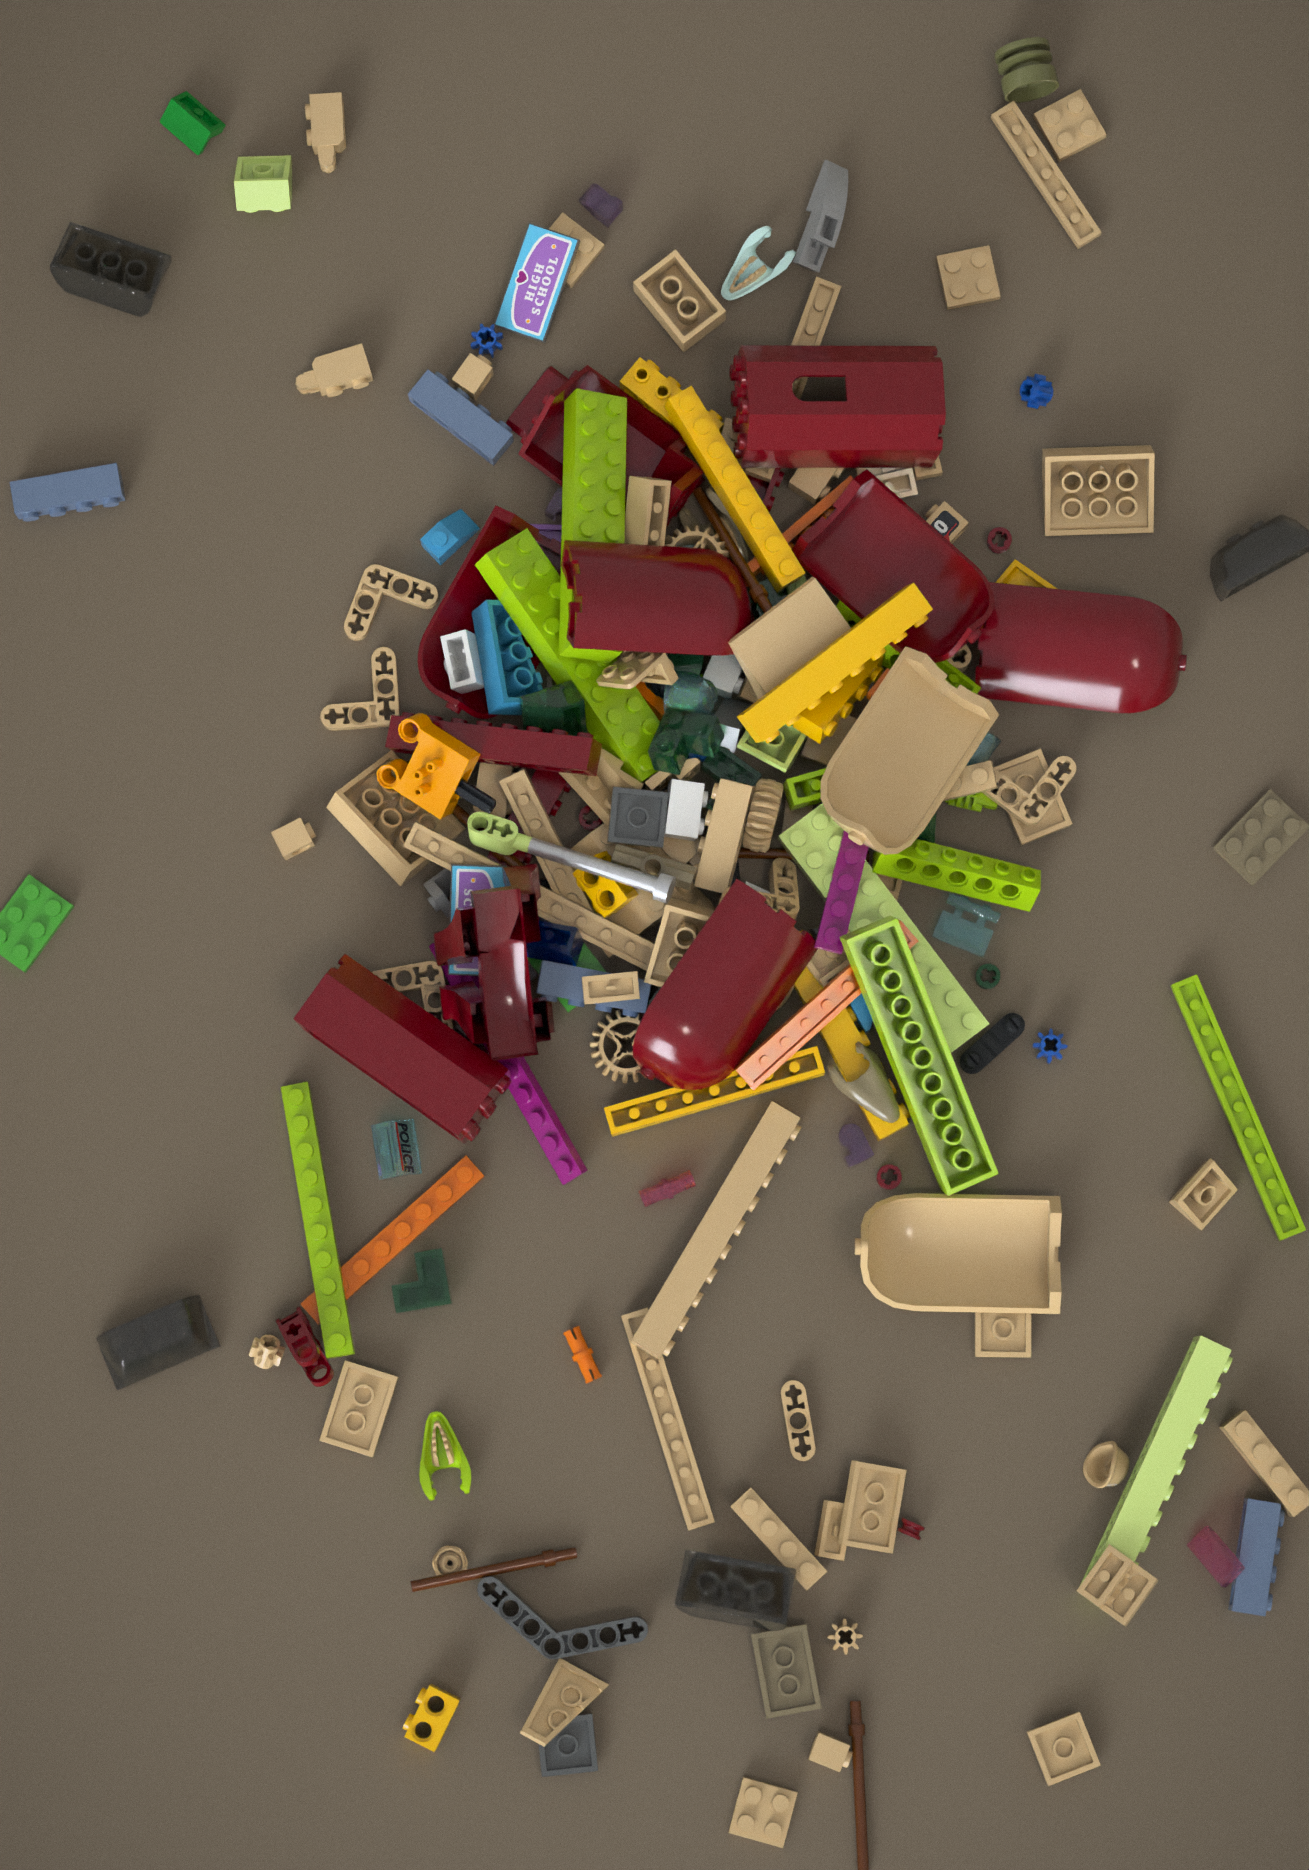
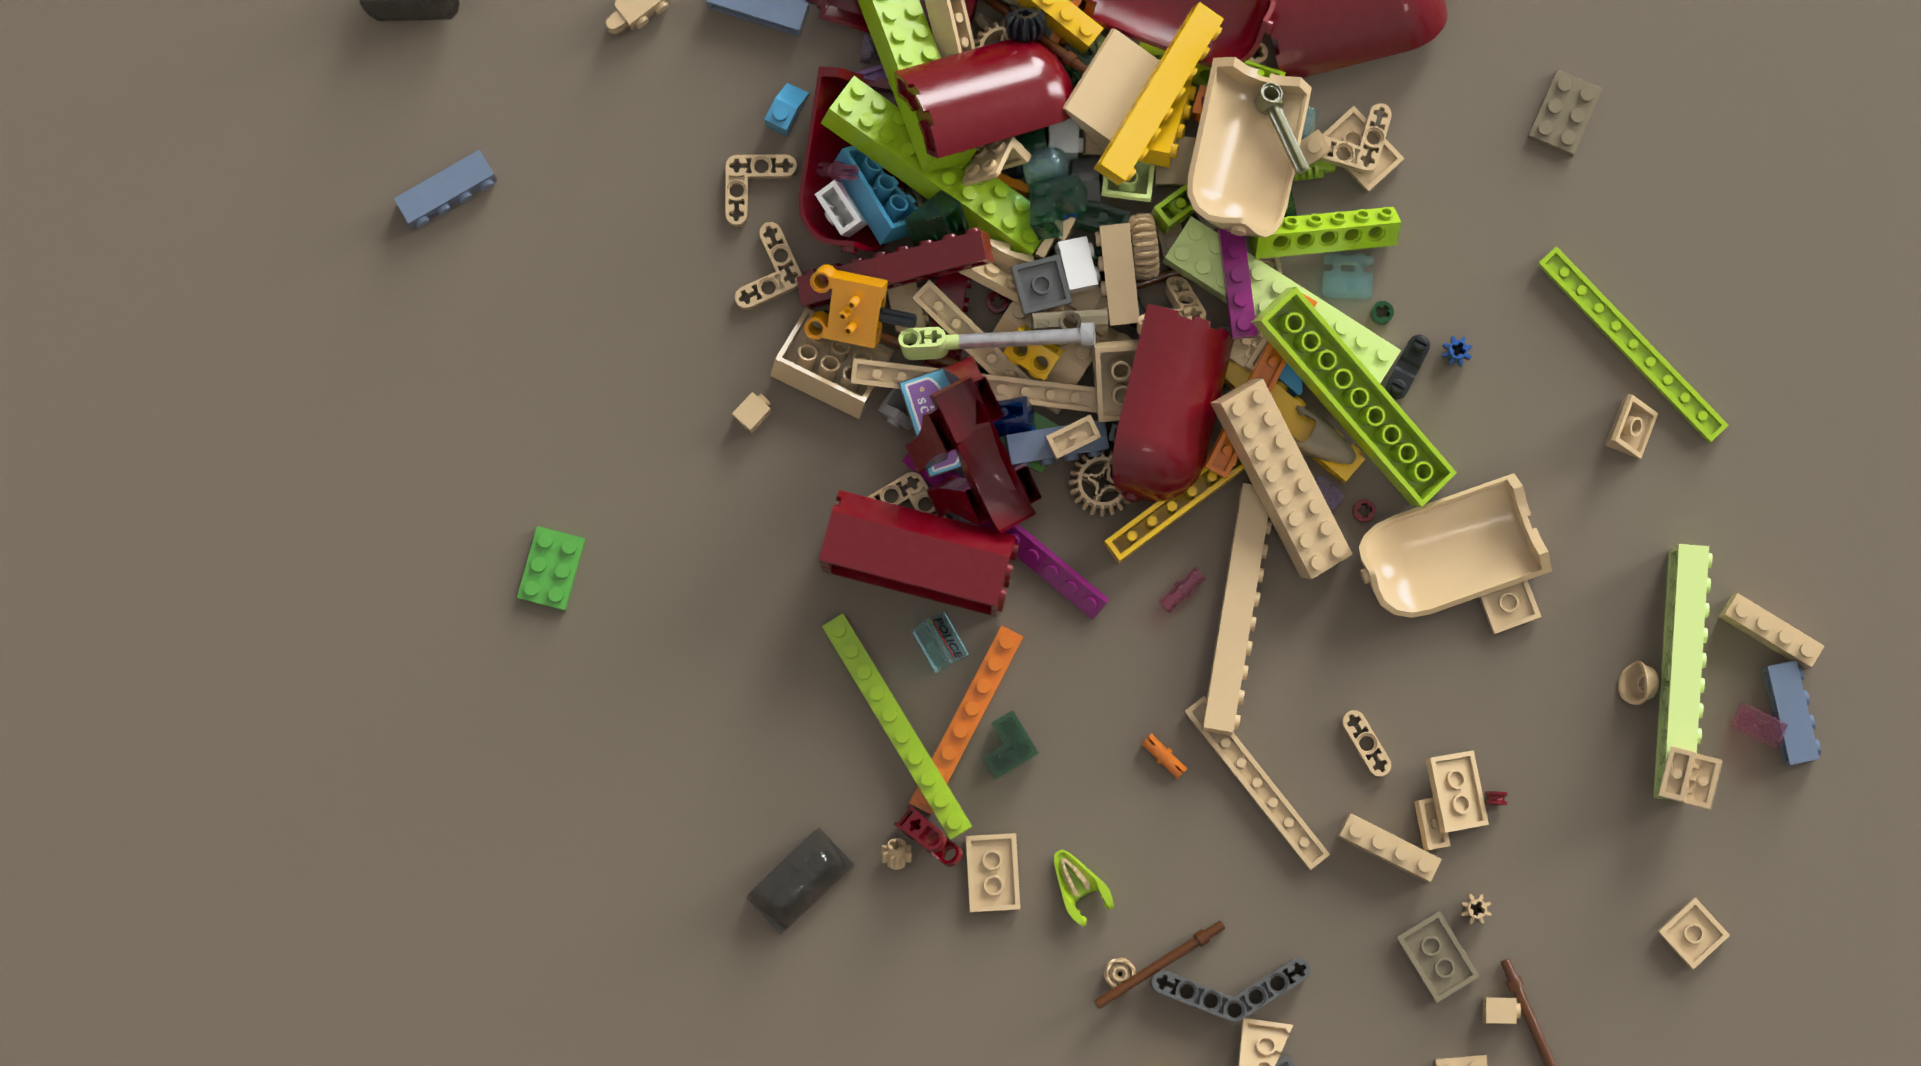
camera: 25 degrees left, 0 degrees up
(473, 620) = (837, 171): none -> clear pink pin
(724, 539) = (1025, 24): none -> black gear
(735, 1590) = (1372, 904): clear smoke windscreen -> none
(811, 1111) = (1281, 478): none -> tan brick
(950, 746) = (1274, 110): none -> olive axle

